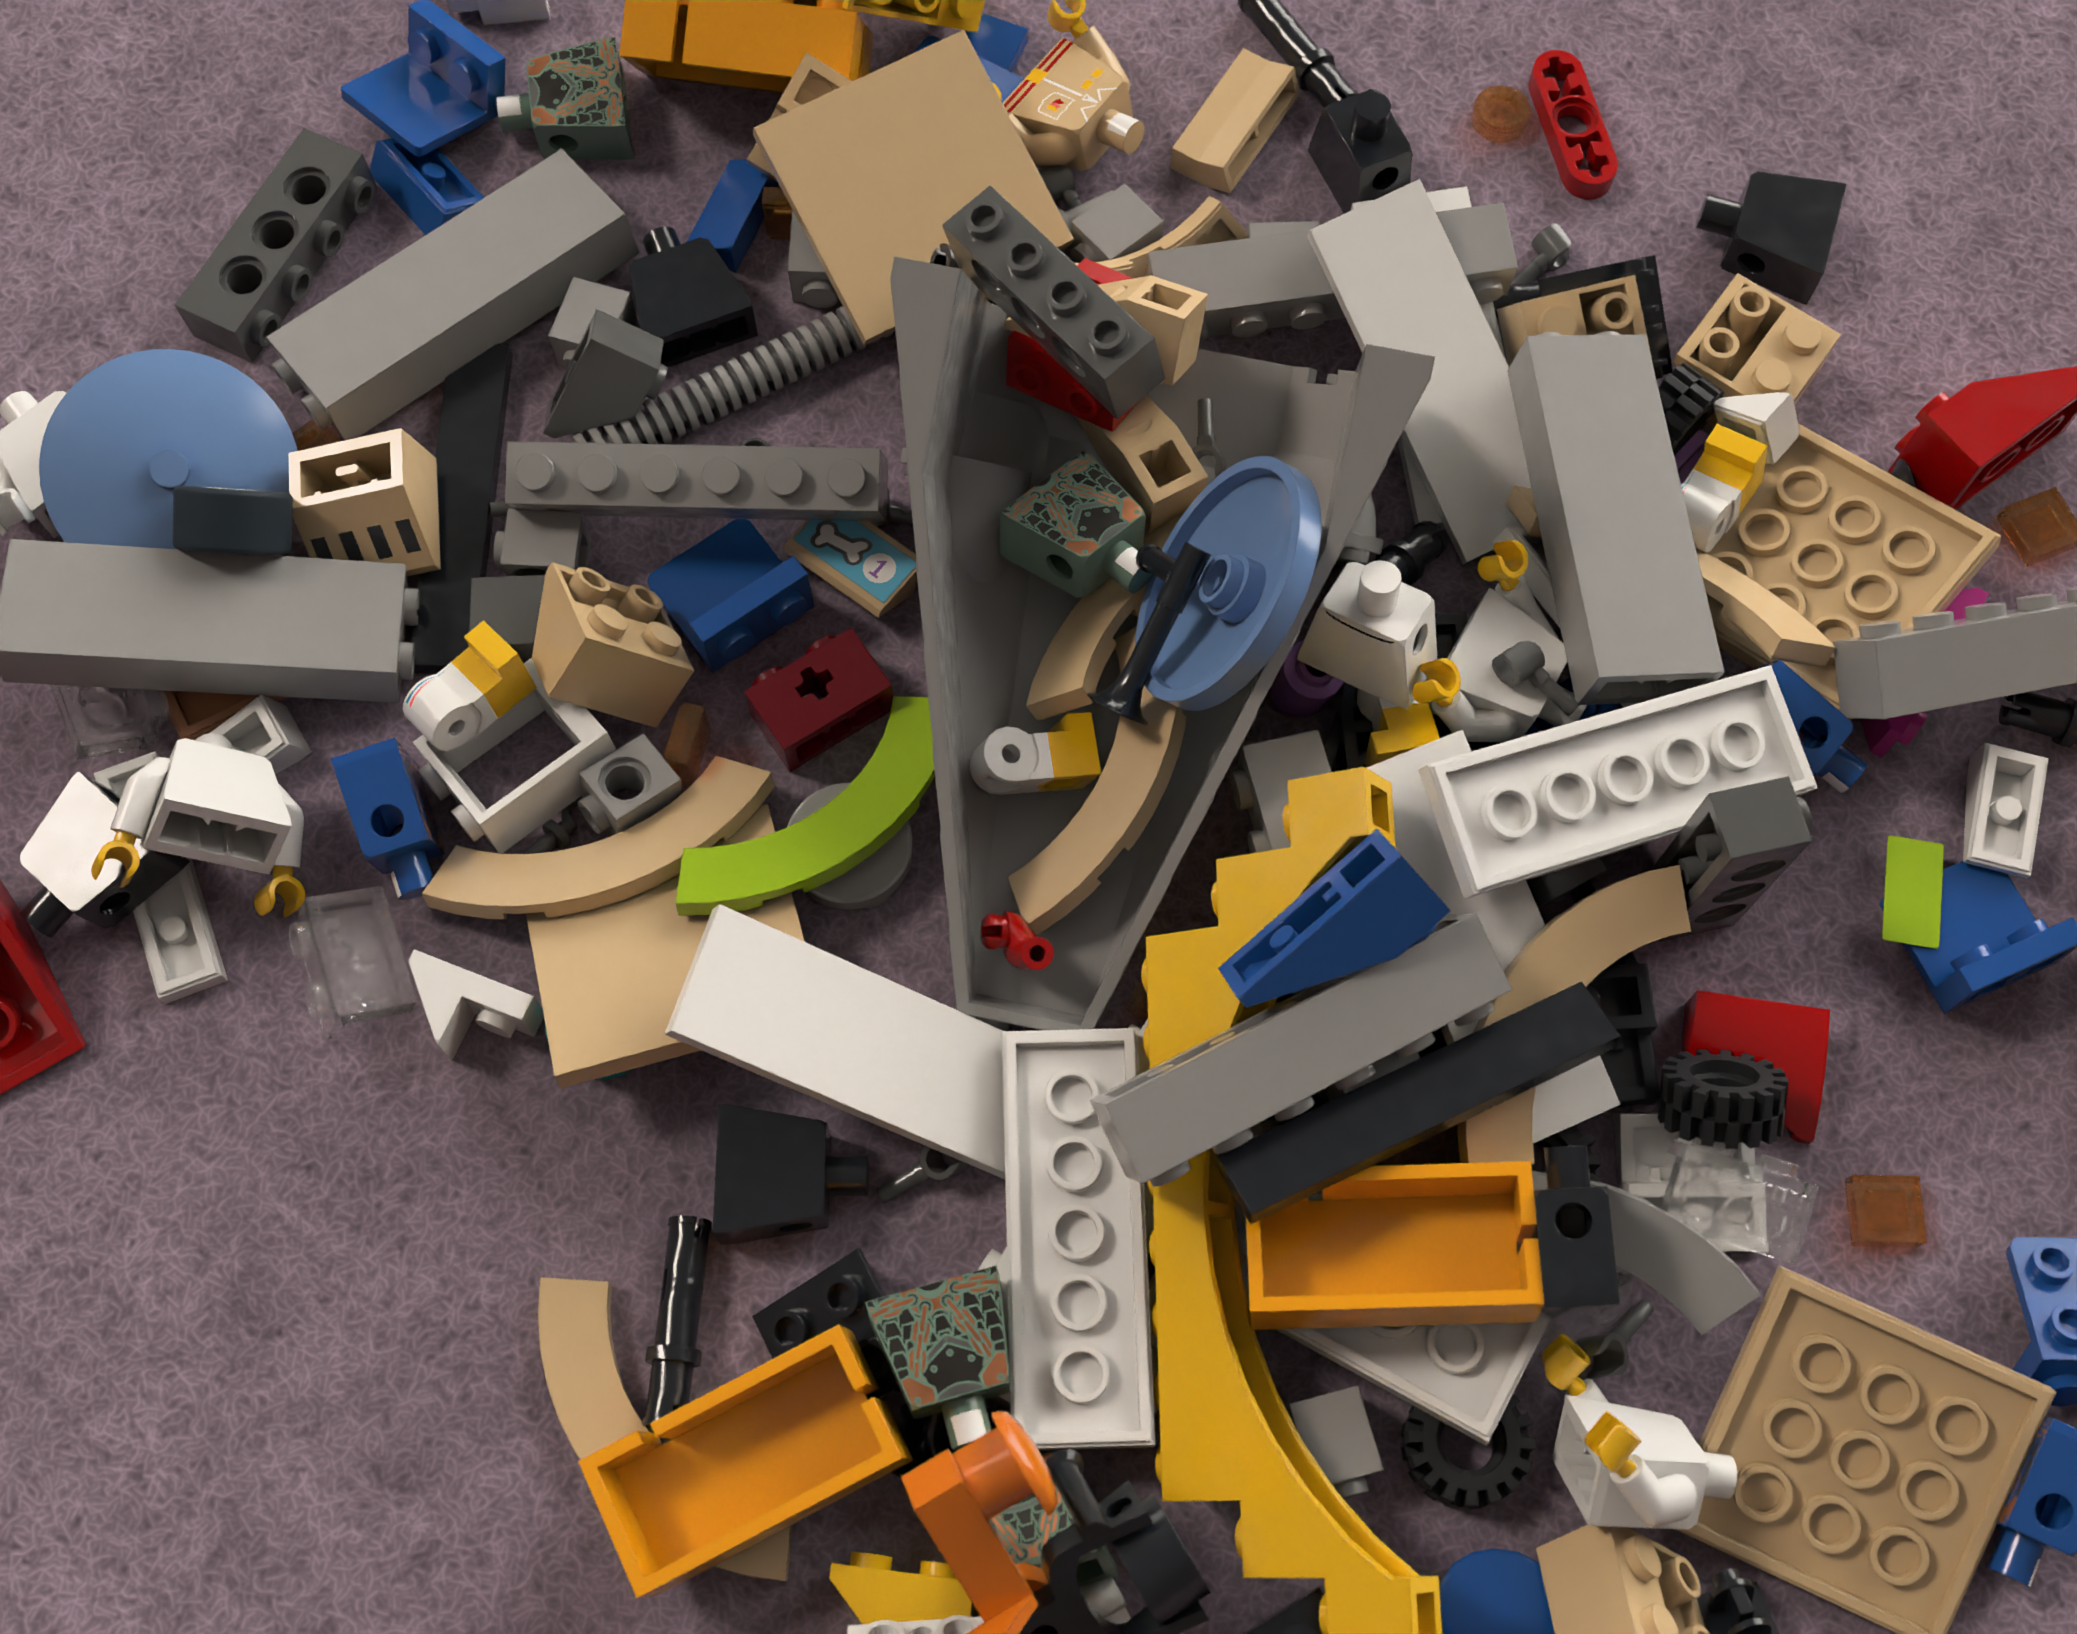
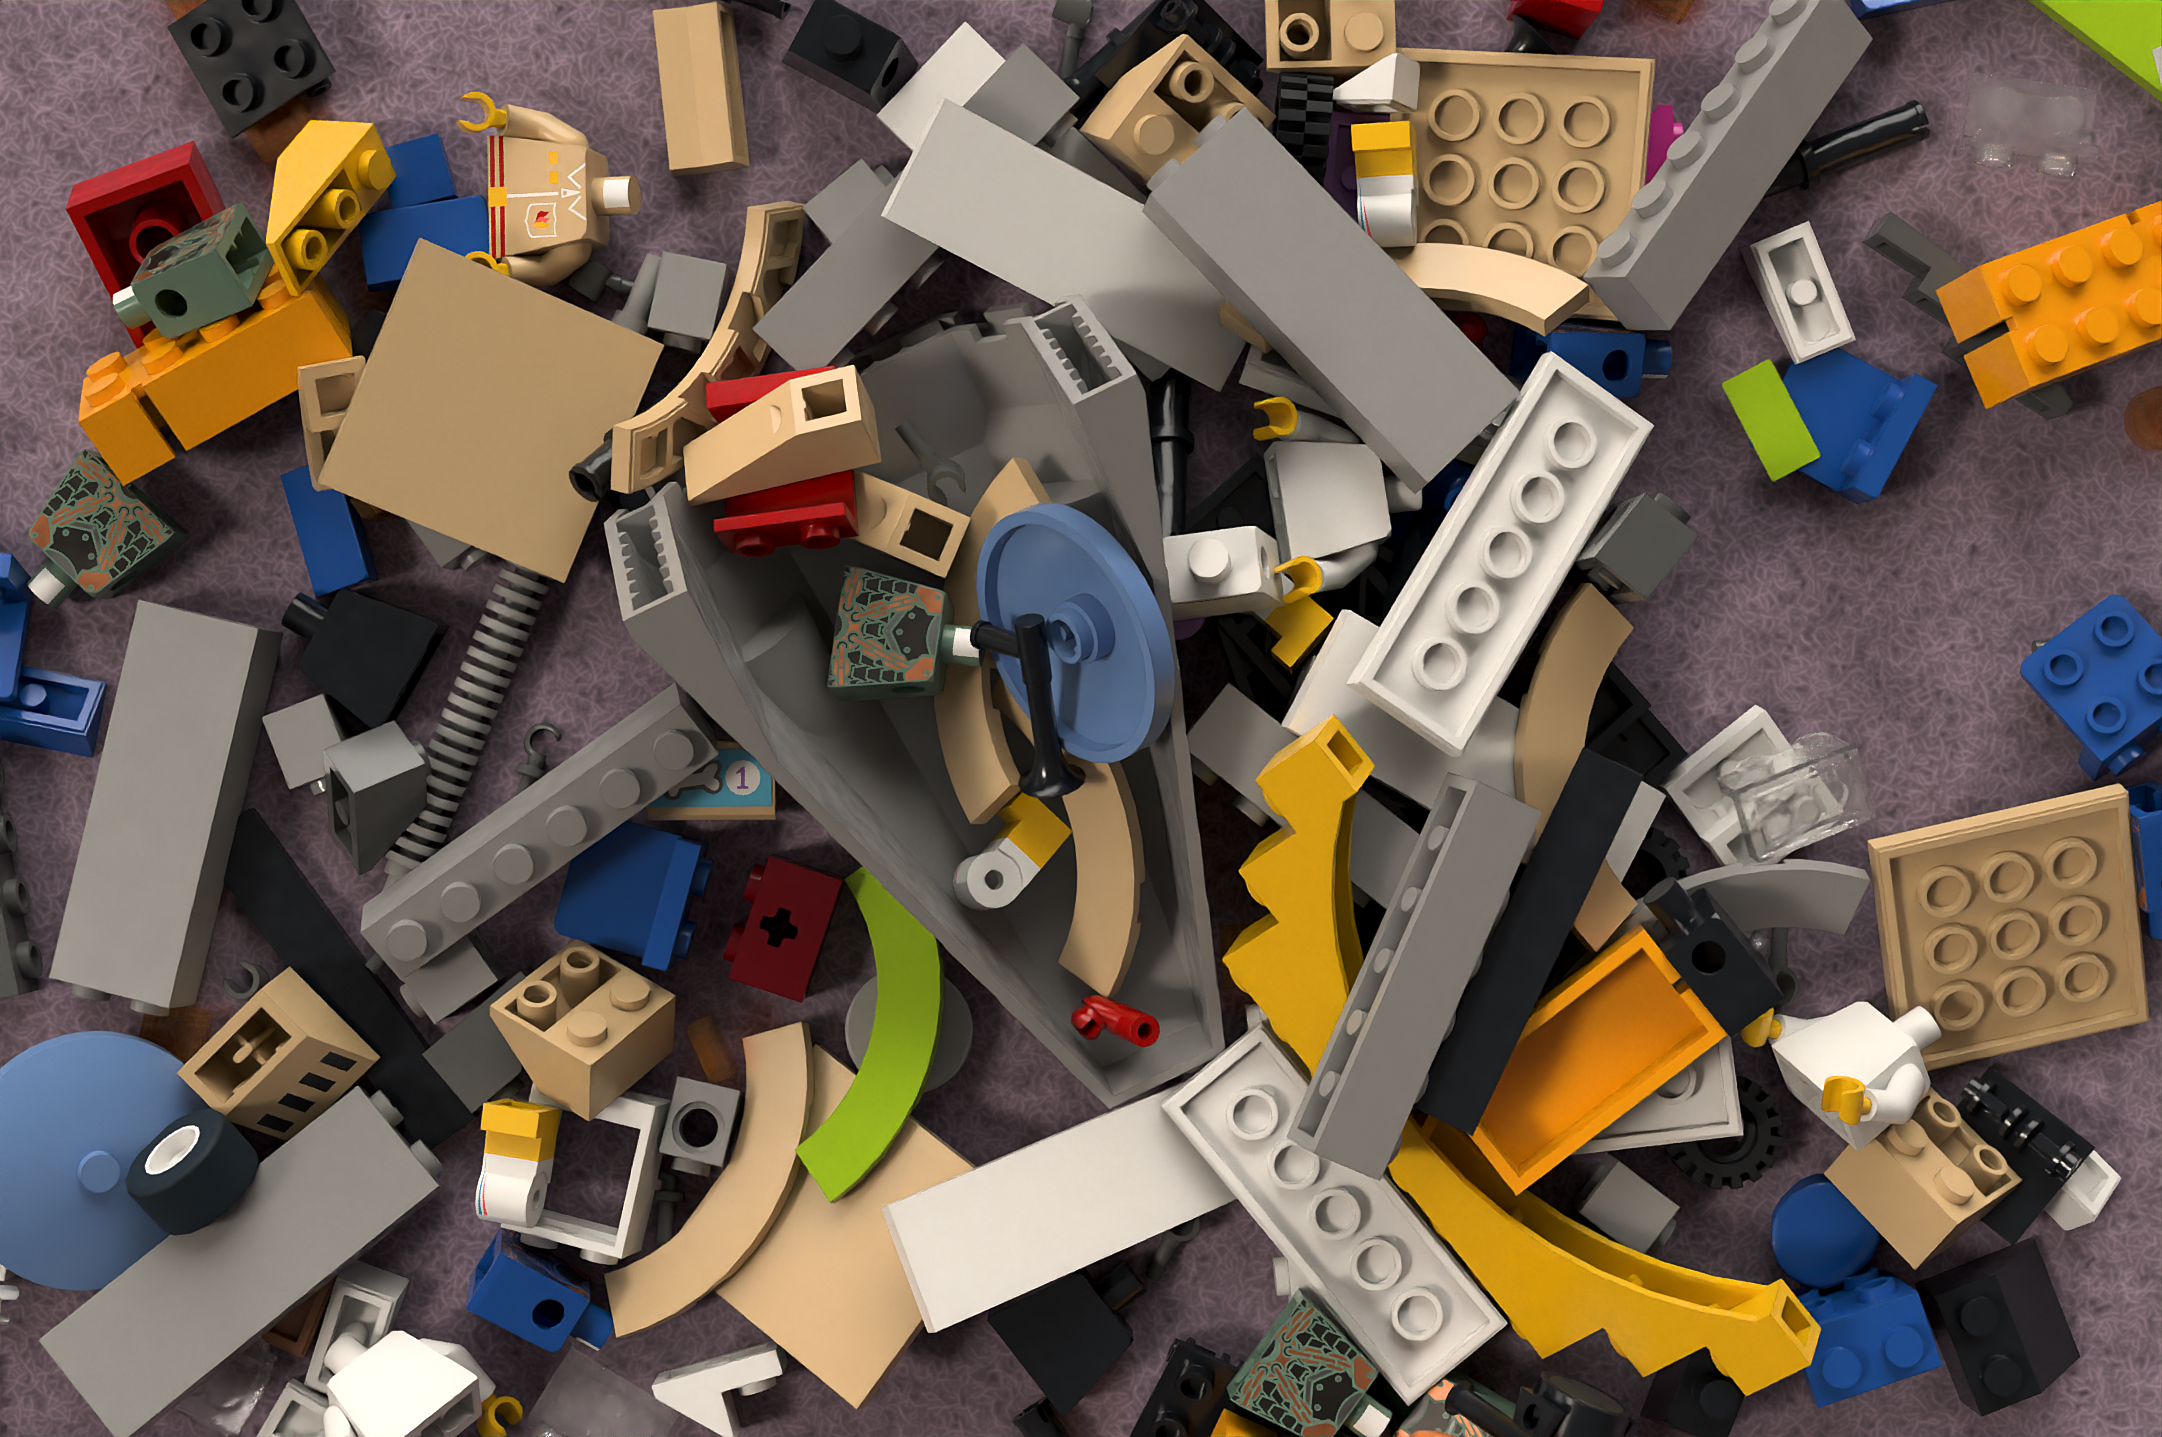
camera: 40 degrees left, 20 degrees up
(1054, 302) = (738, 489): dark grey brick -> none
(1345, 922) = (1384, 874): blue slope -> none
(1526, 662) = (1348, 502): dark grey hand -> none
(1722, 1098) = (1751, 751): black tyre -> none
(1771, 1031) = (1740, 654): red slope -> none
(1885, 1211) = (1911, 707): clear orange tile -> none

